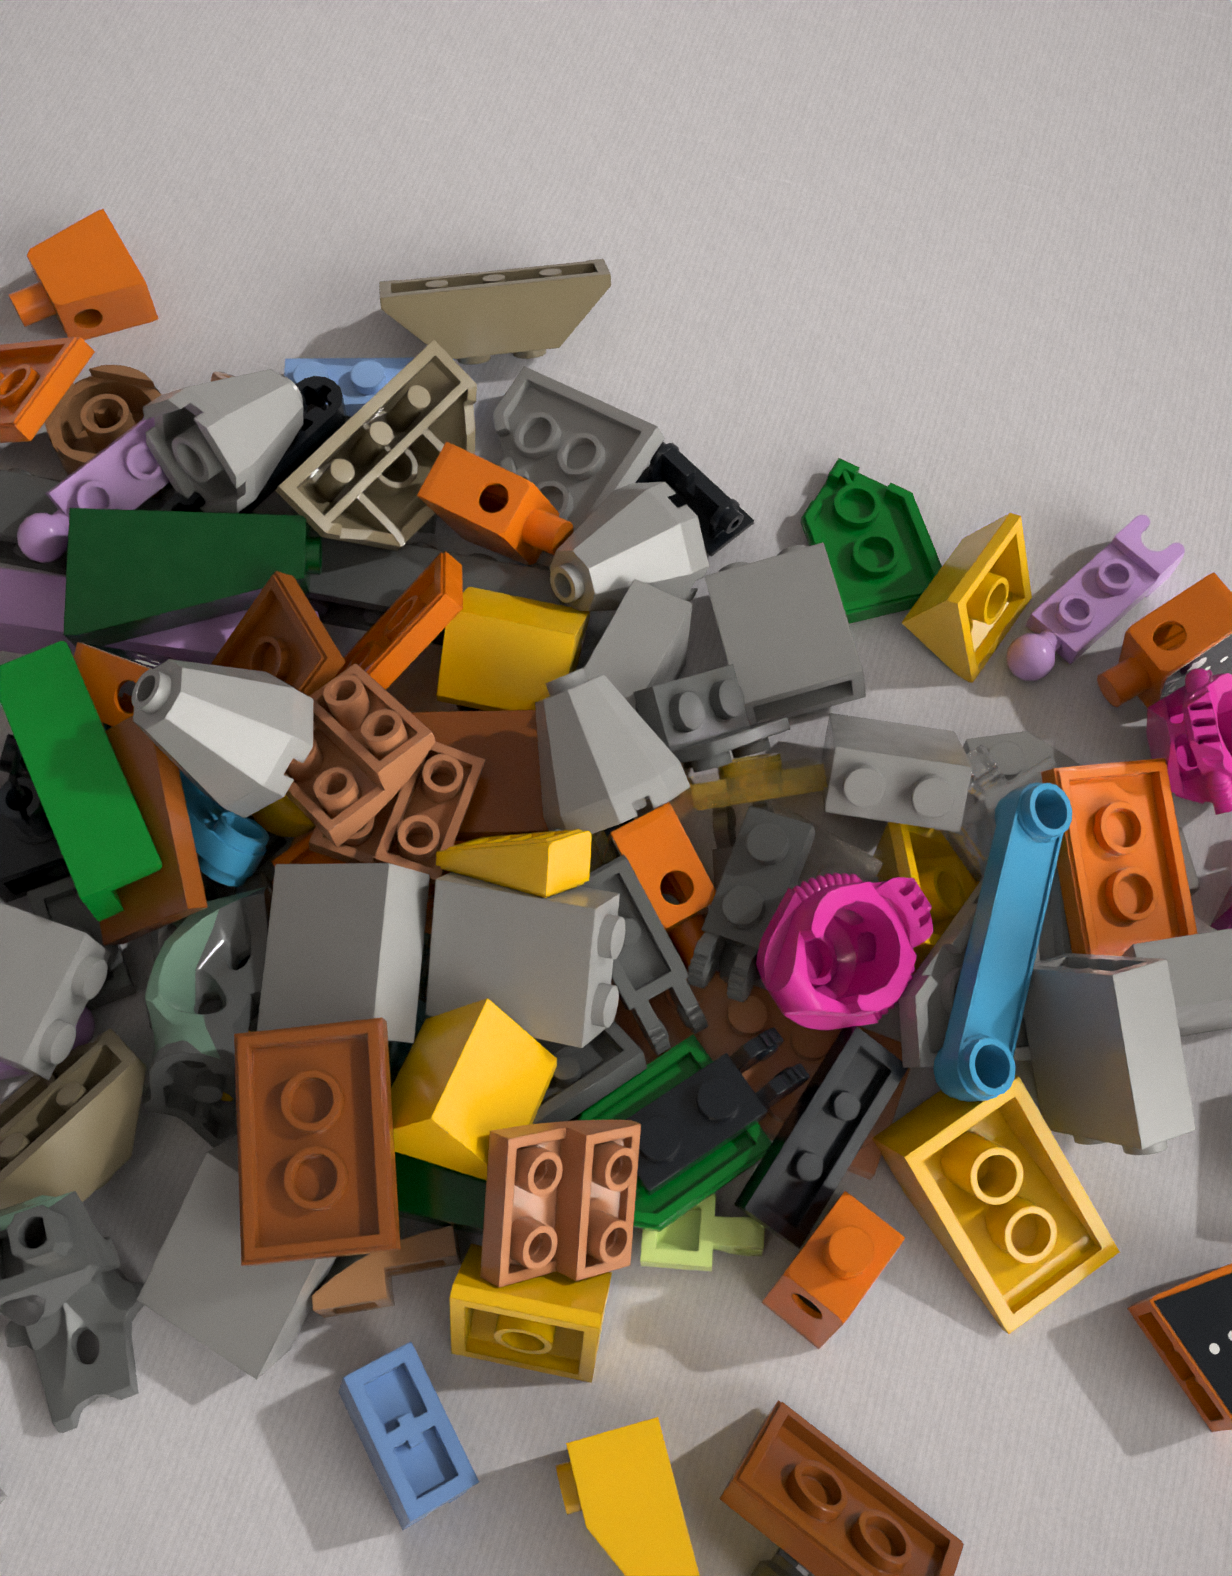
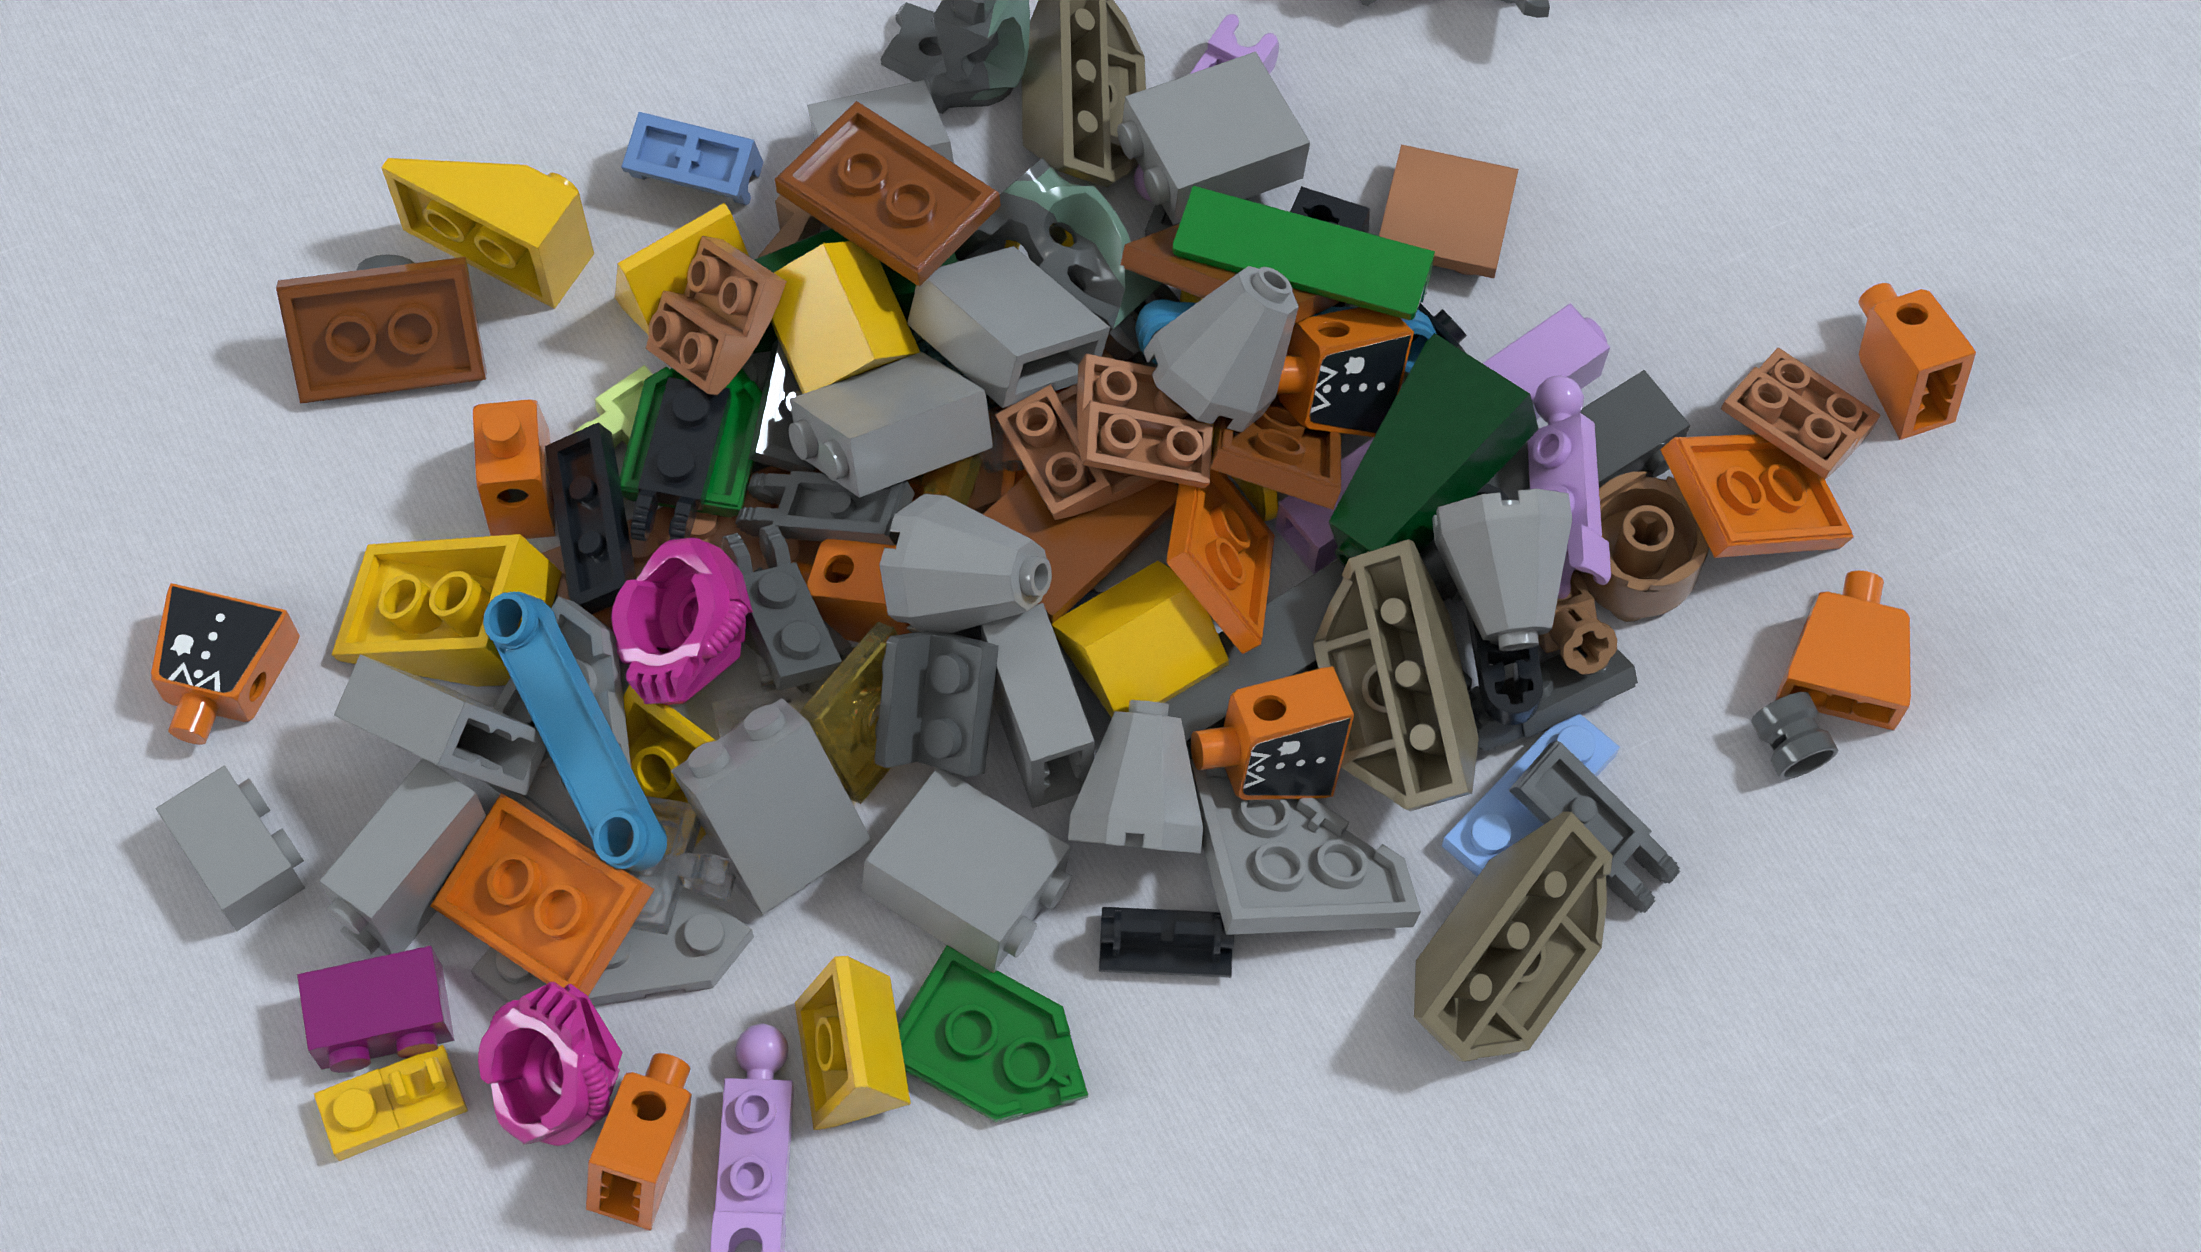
camera: 135 degrees right, 0 degrees up
(181, 272) = (1794, 735): none -> dark grey wheel
(359, 327) = (1561, 784): none -> dark grey hinge
(524, 862) = (910, 453): yellow slope -> none

